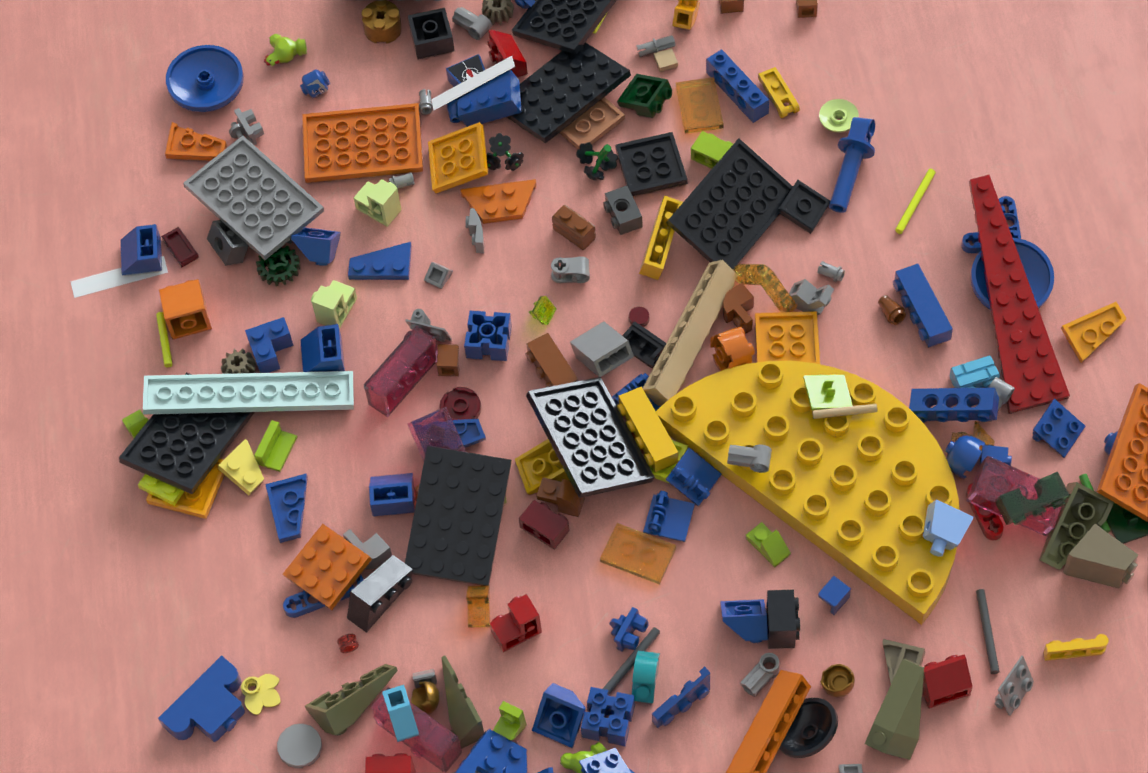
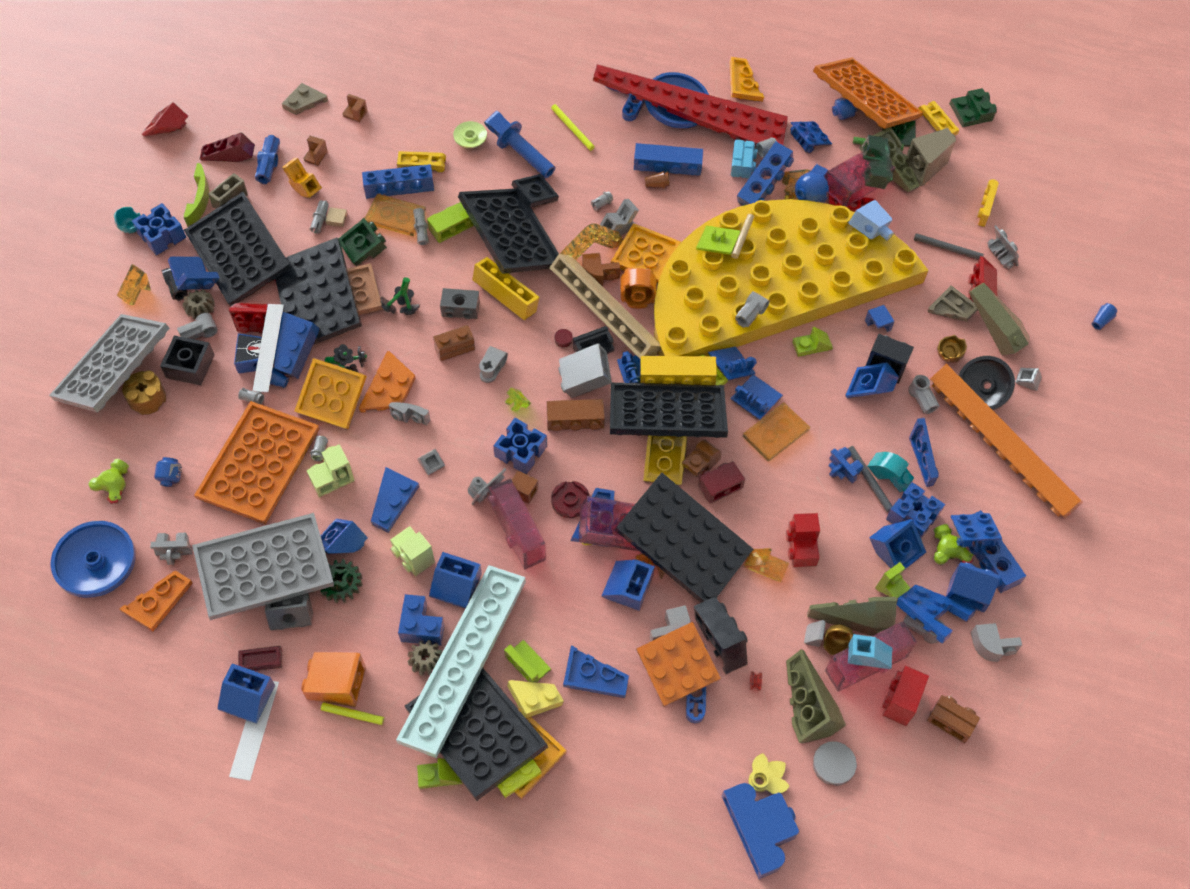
camera: 70 degrees left, 0 degrees up
(651, 164) = (429, 267): black plate -> none
(694, 131) = (421, 226): none -> light grey pin

